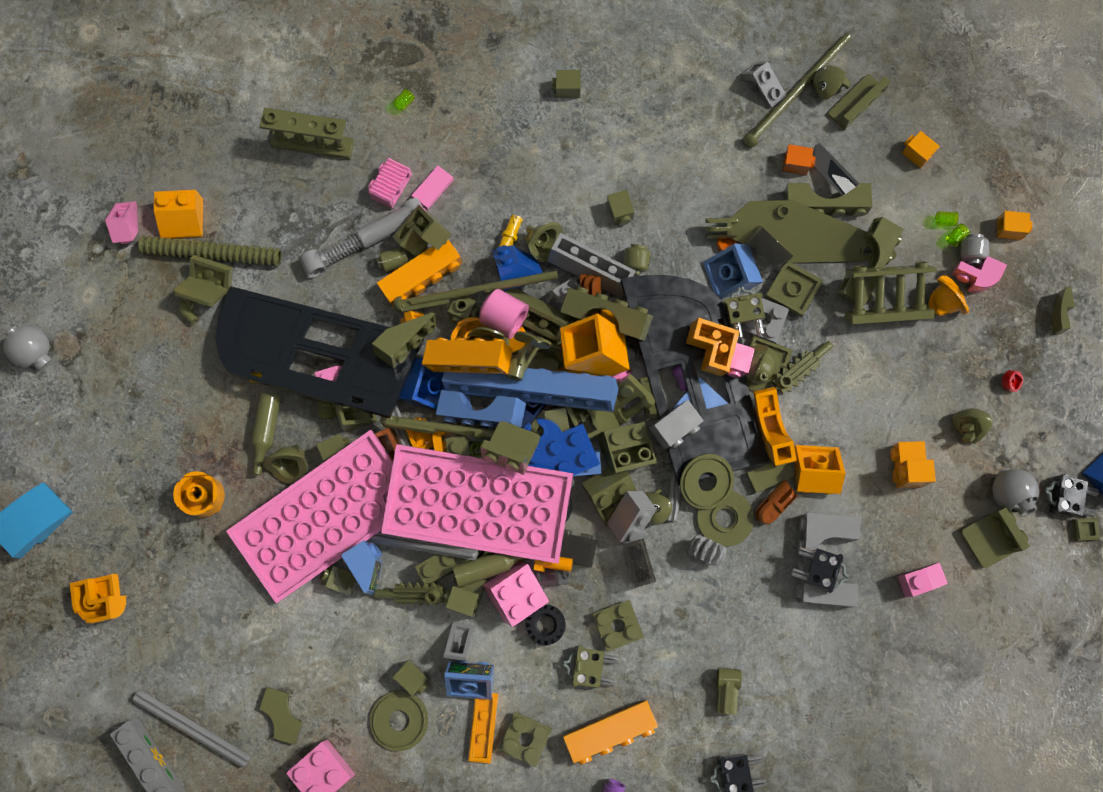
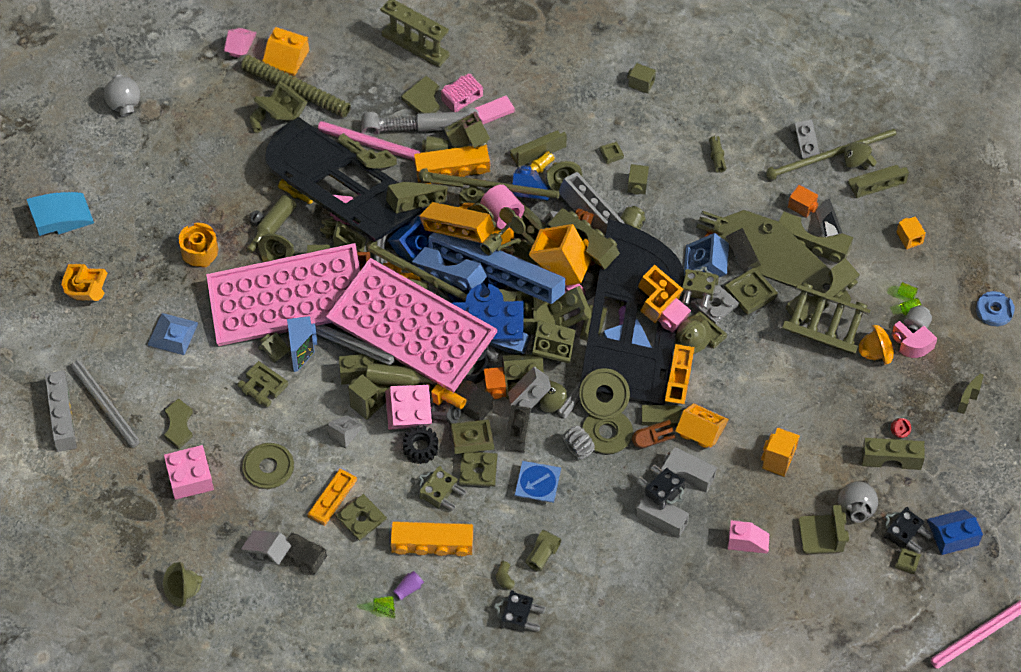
camera: 20 degrees right, 20 degrees down
(223, 609) = (173, 334): none -> medium blue slope
(248, 430) = (259, 217): none -> dark grey hinge
(294, 296) = (351, 145): none -> olive pin
(318, 283) = (368, 140): none -> bright pink axle
(340, 305) = (377, 160): none -> olive slope
(347, 621) = (267, 380): none -> olive plate
(349, 204) = (422, 96): none -> olive tile
(403, 100) = (503, 41): clear neon green hinge -> none
(403, 594) = (327, 376): olive piece -> none
(412, 678) = (294, 436): olive brick -> none
(469, 679) = (339, 453): medium blue slope -> none
(500, 213) = (535, 149): none -> olive panel
(510, 447) = (456, 291): olive bracket -> none
(577, 185) = (611, 152): none -> olive tile
(588, 517) = (495, 382): none -> orange brick
(594, 592) = (472, 436): none -> olive tile
(676, 424) = (599, 338): light grey brick -> none
(685, 141) = (717, 154): none -> olive pin
(686, 613) = (538, 481): none -> piece
(700, 739) = (503, 578): none -> olive arm
(802, 367) = (726, 349): olive piece -> none
(972, 424) = (848, 443): olive piece -> none
(1013, 225) = (961, 316): light orange brick -> none
(1023, 415) = (908, 452): none -> olive arch
(1046, 191) = (991, 317): none -> medium blue tile

